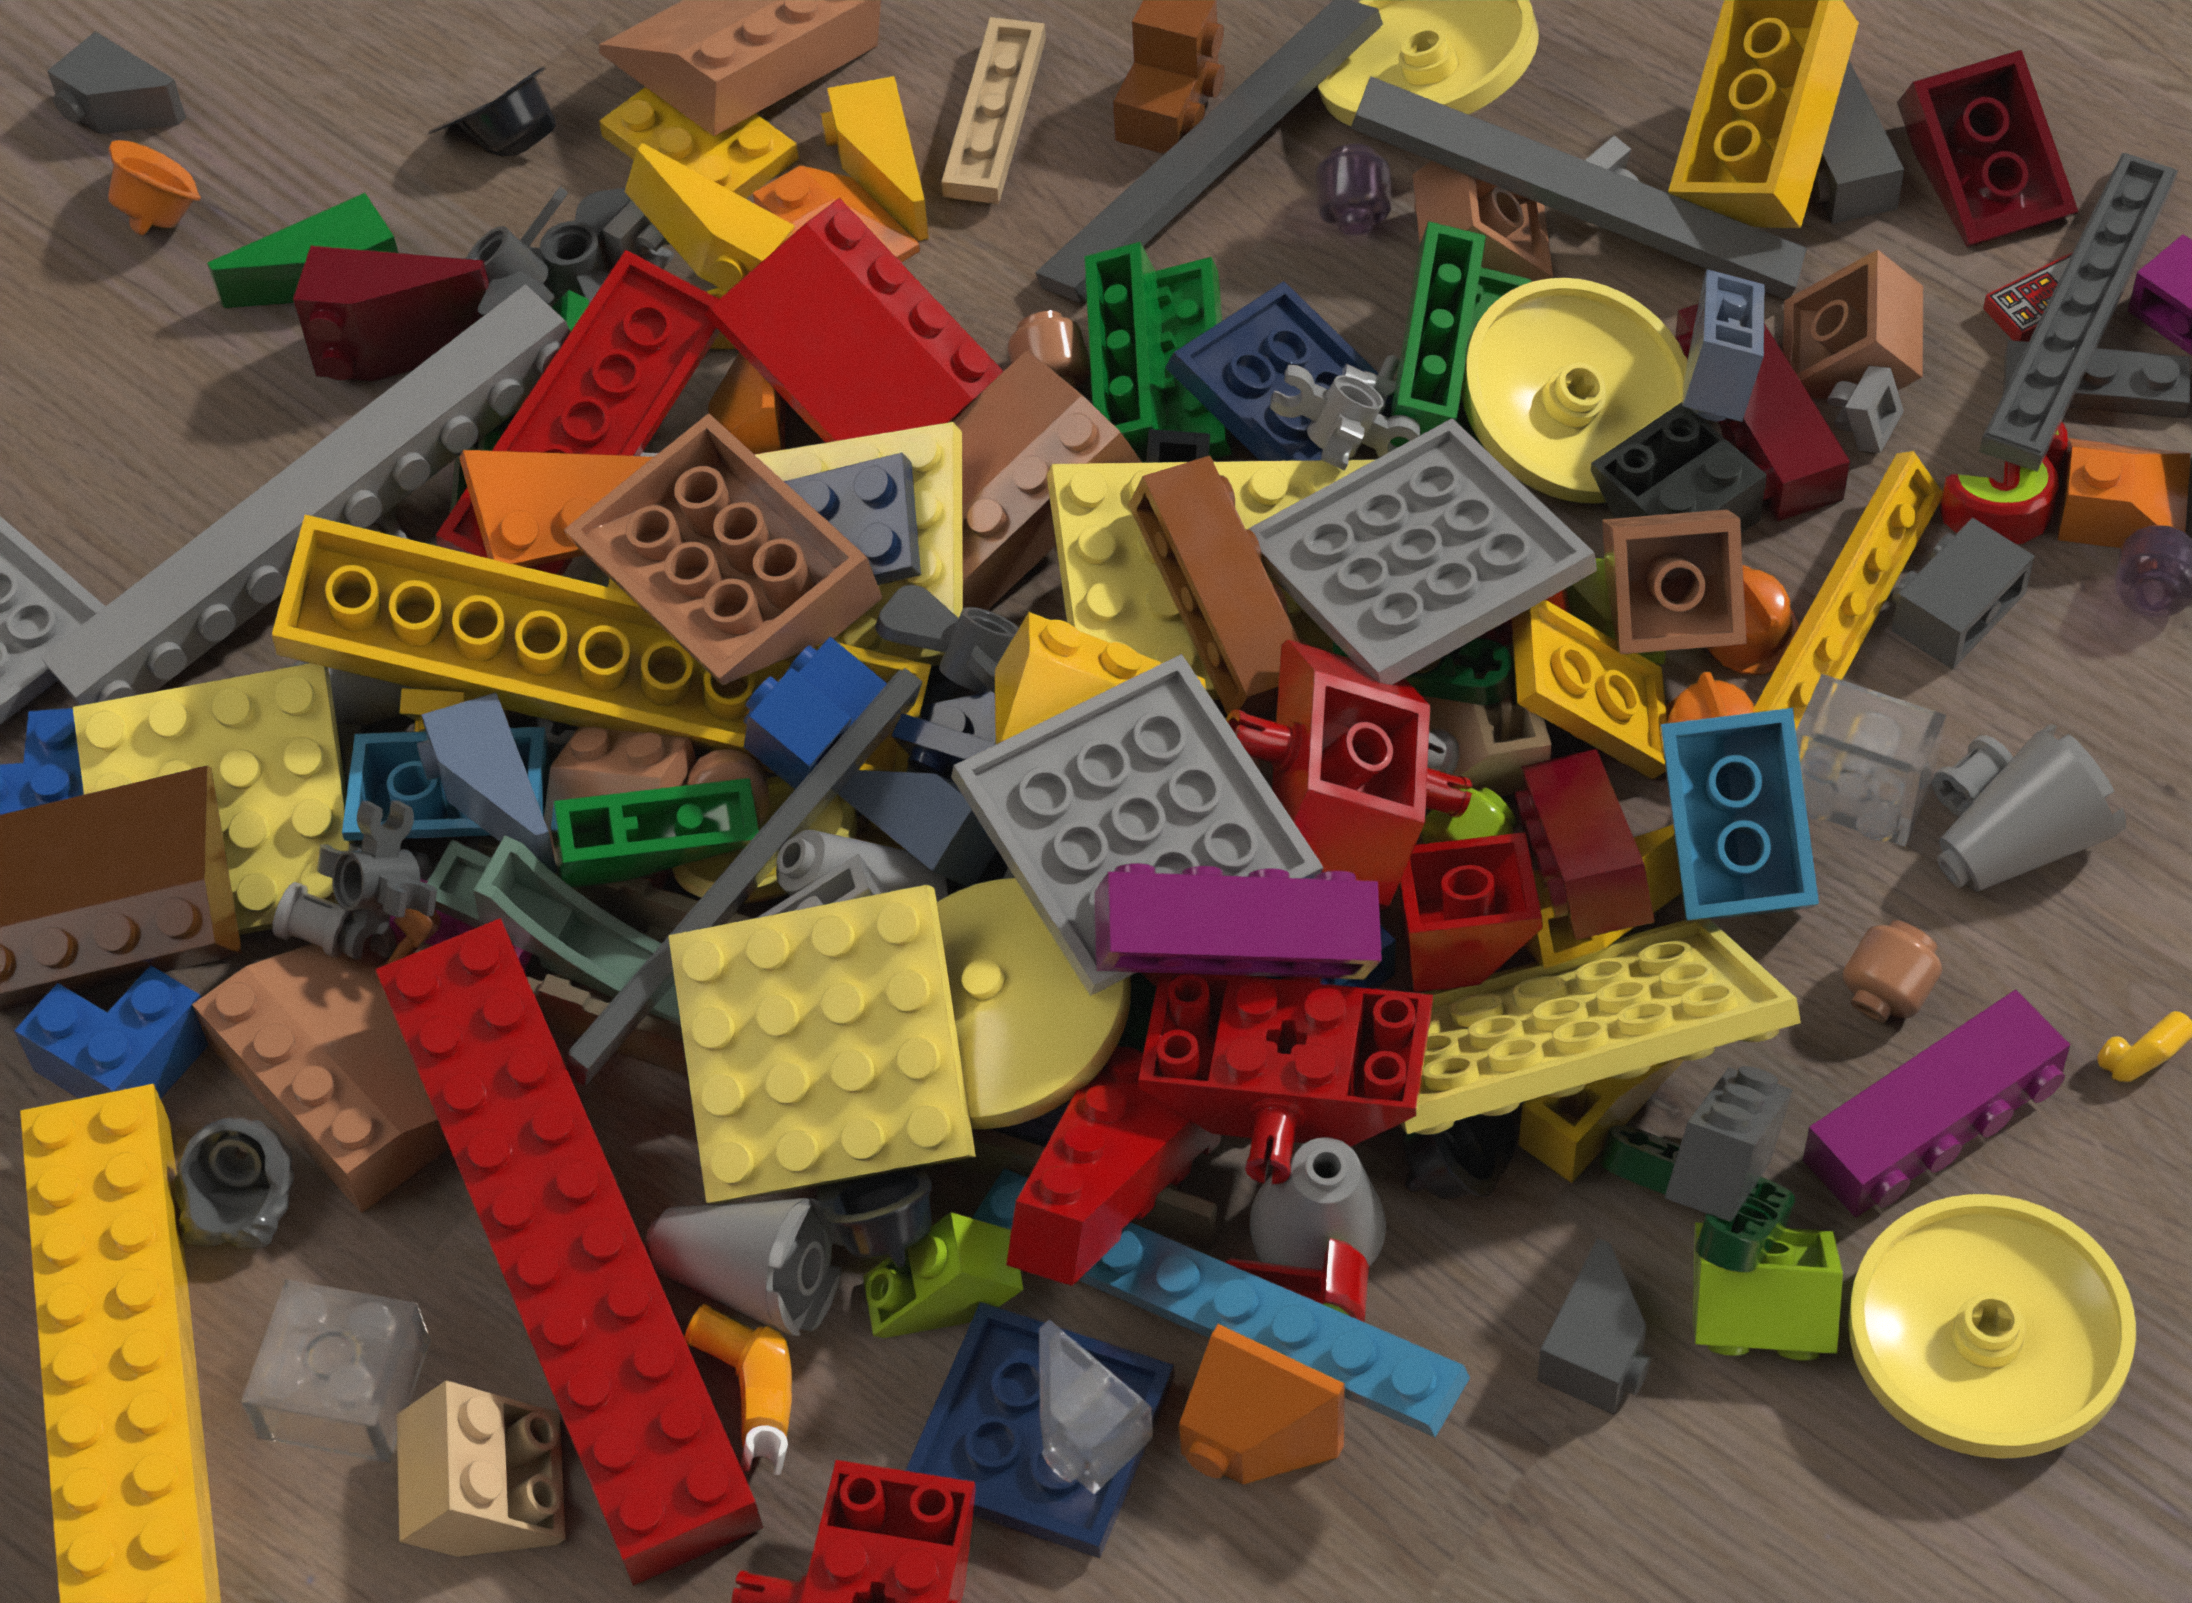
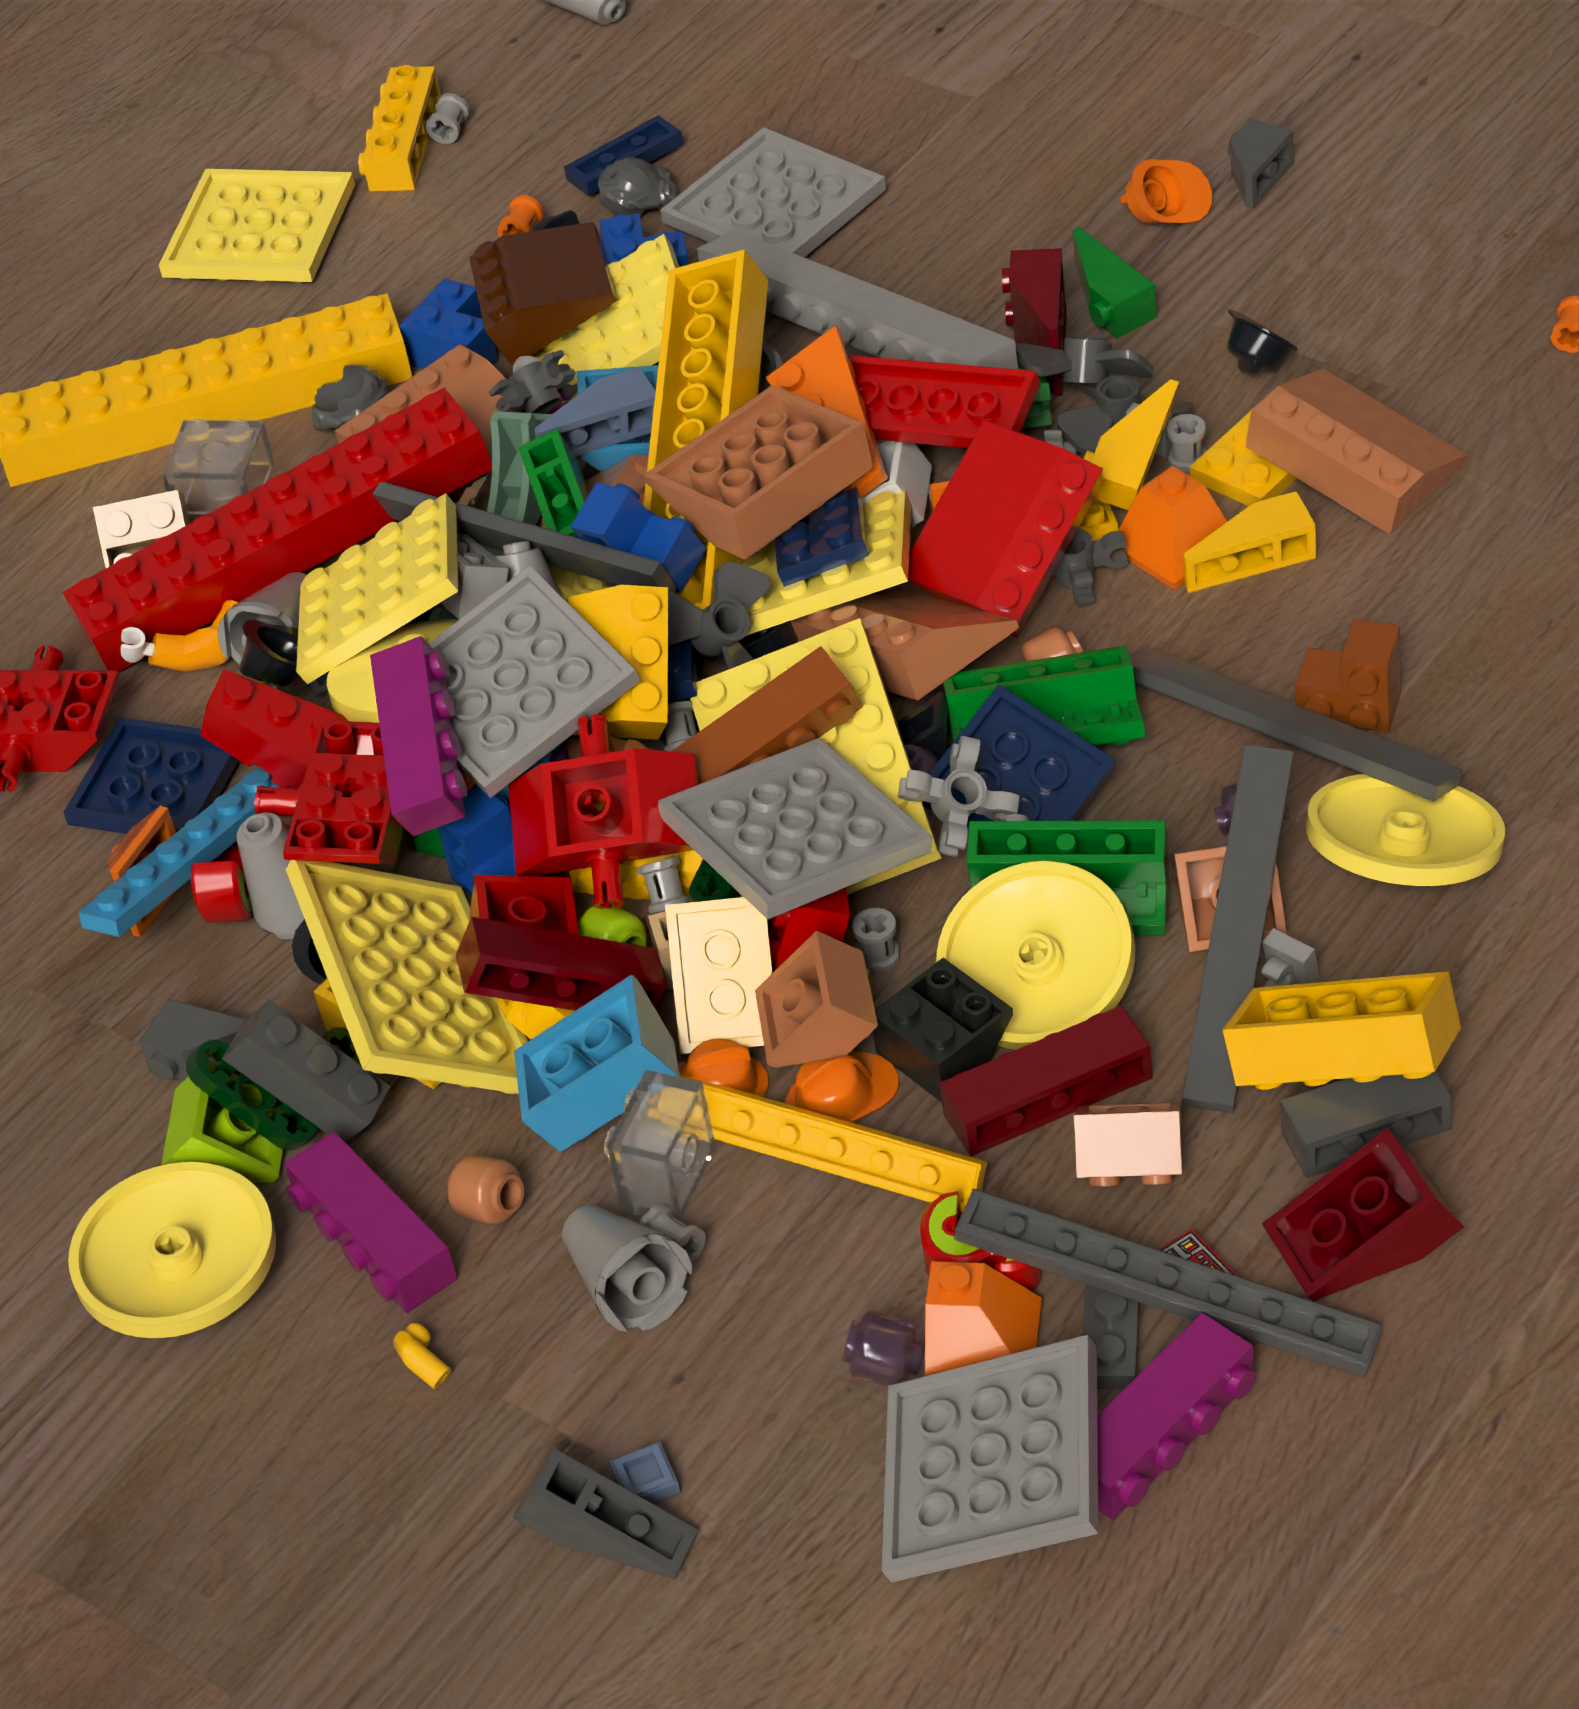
camera: 90 degrees right, 10 degrees down
(993, 110) = (1314, 598): tan plate -> none
(1086, 1413) = (144, 776): clear slope -> none
(1725, 347) = (1063, 1018): sand blue slope -> none
(1868, 408) = (1046, 1152): light grey tile -> none
(1961, 592) = (854, 1220): dark grey brick -> none

